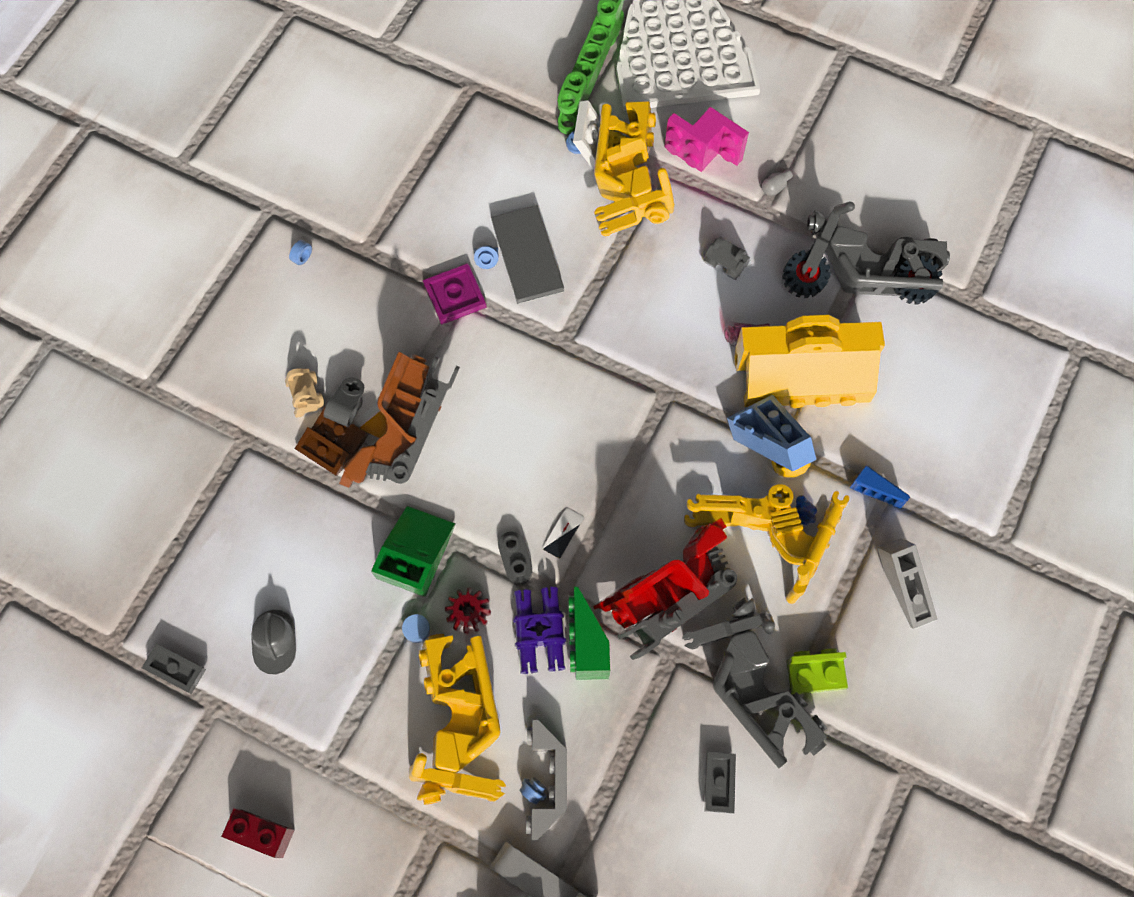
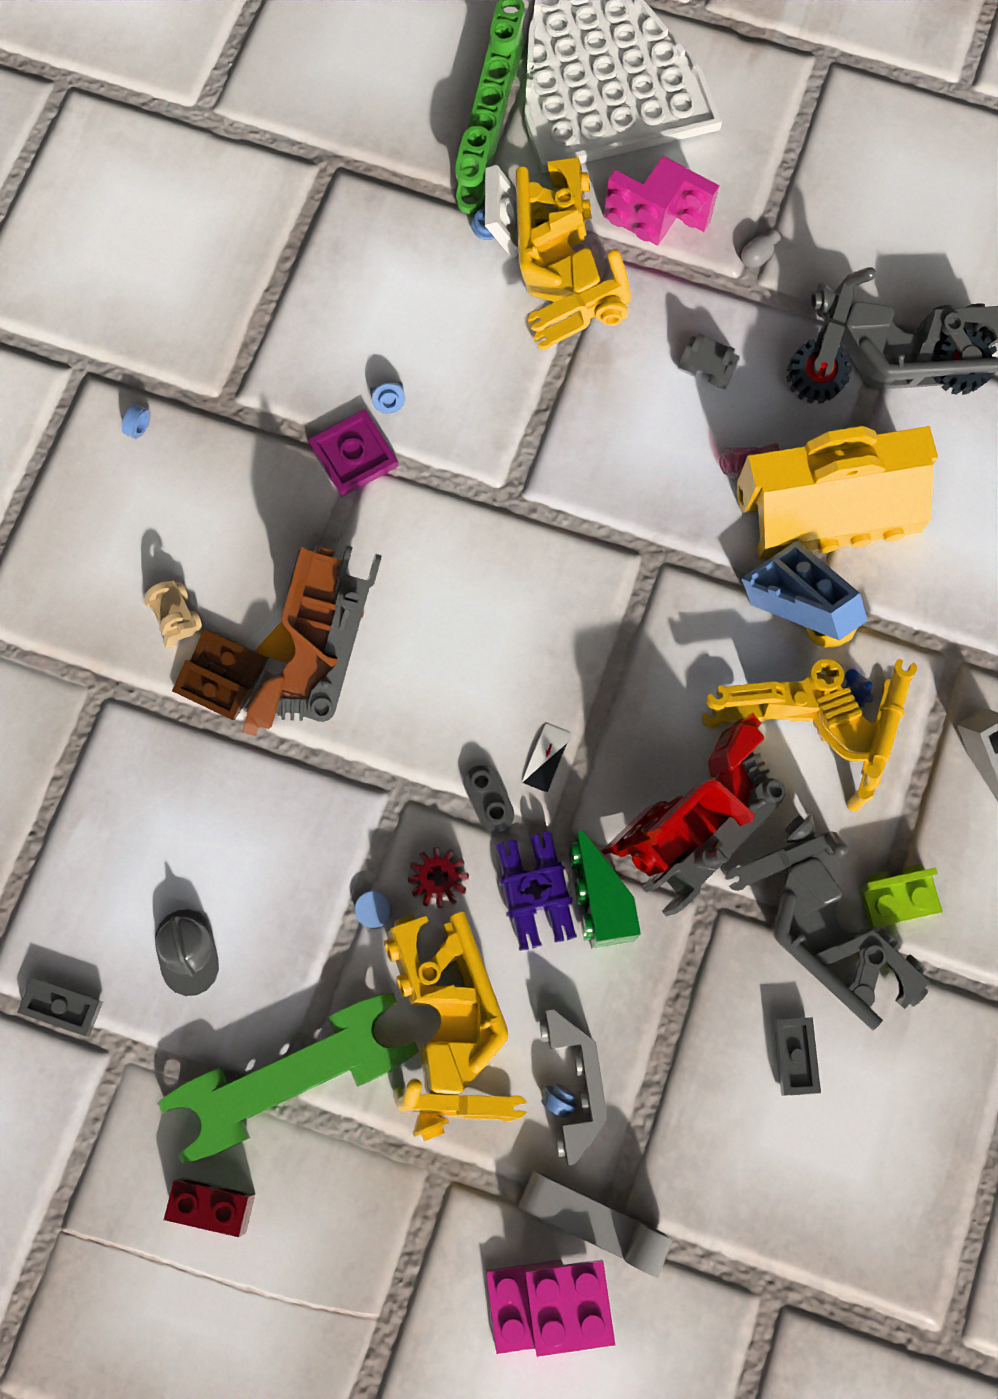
camera: 10 degrees left, 5 degrees up
(283, 758) = (226, 1106): none -> bright green piece
(345, 402) = (232, 620): dark grey piece -> none
(413, 551) = (354, 808): green slope -> none
(527, 254) = (443, 387): dark grey tile -> none
(878, 487) = (948, 645): blue slope -> none

